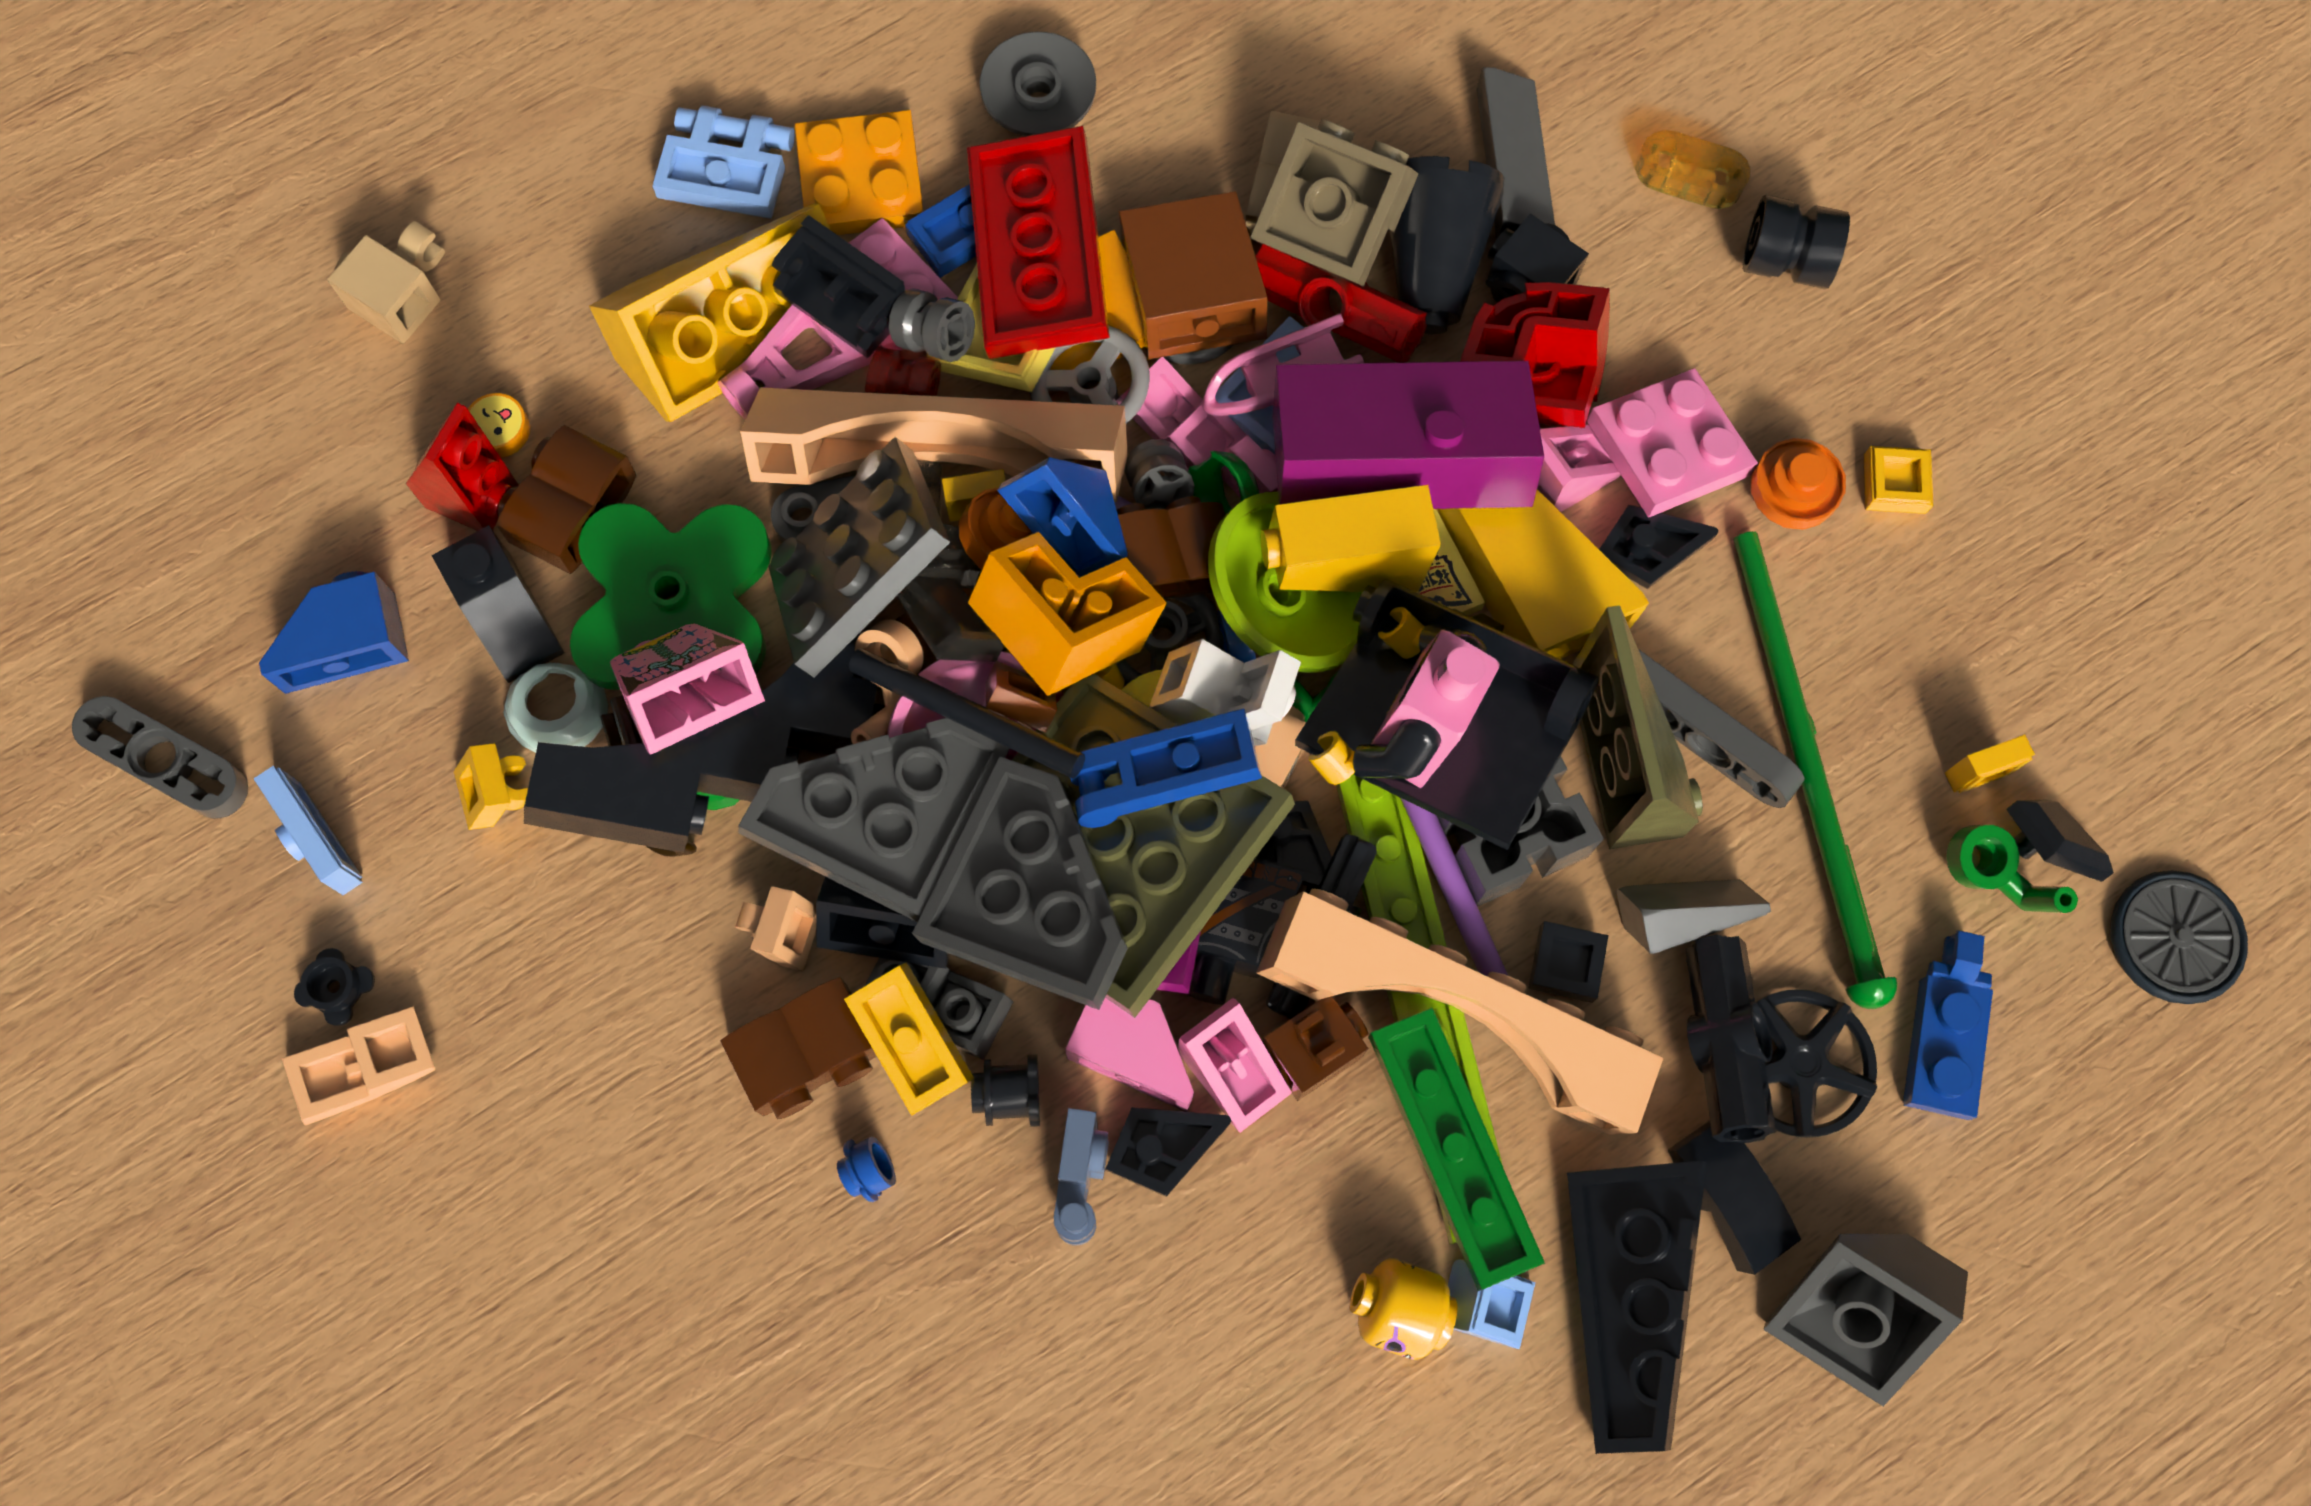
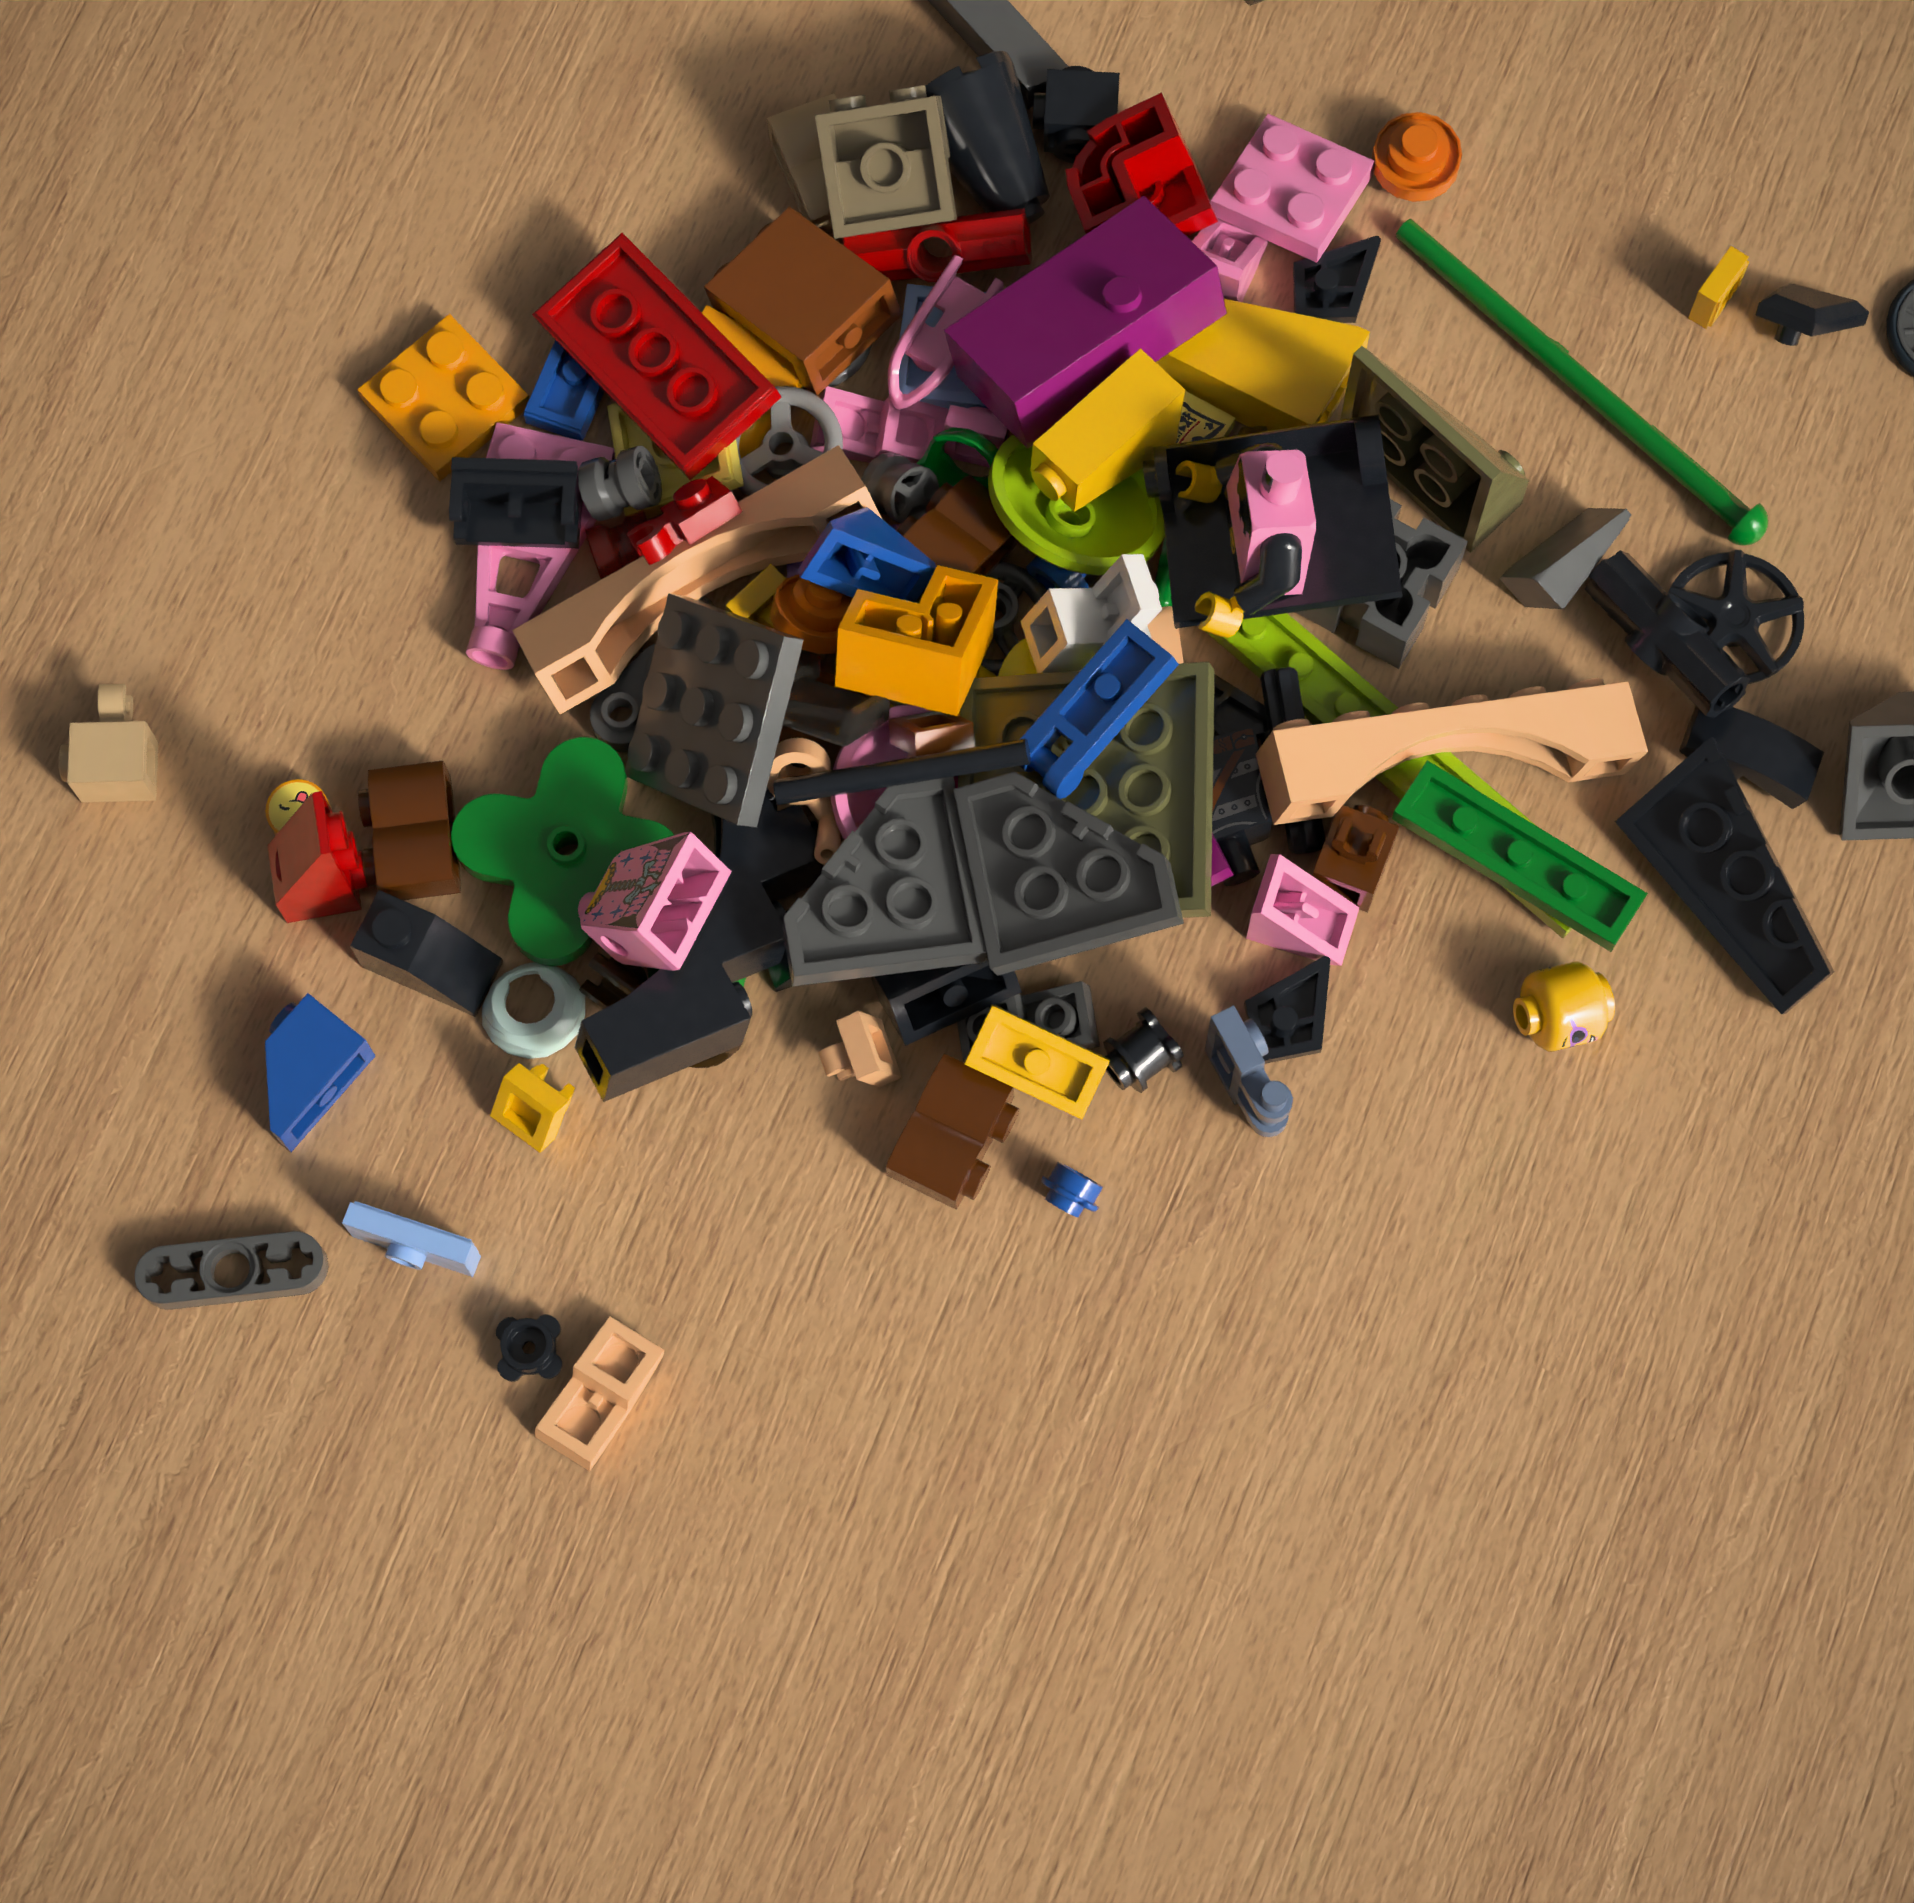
camera: 30 degrees left, 0 degrees up
(699, 316) = (406, 604): yellow wedge -> none
(719, 174) = (326, 475): light blue plate -> none
(967, 384) = (693, 513): none -> red plate
(1032, 65) = (541, 198): dark grey dish -> none
(1132, 1051) = (1215, 956): bright pink slope -> none
(1455, 890) = (1370, 658): medium lavender bar -> none
(1492, 1313) = (1632, 964): light blue slope -> none
(1568, 961) = (1502, 659): black plate -> none
(1724, 741) = (1508, 405): dark grey beam -> none
(1898, 479) = (1492, 101): yellow tile -> none
(1950, 1031) = (1828, 518): blue hinge -> none
(1999, 870) = (1782, 367): green plate -> none

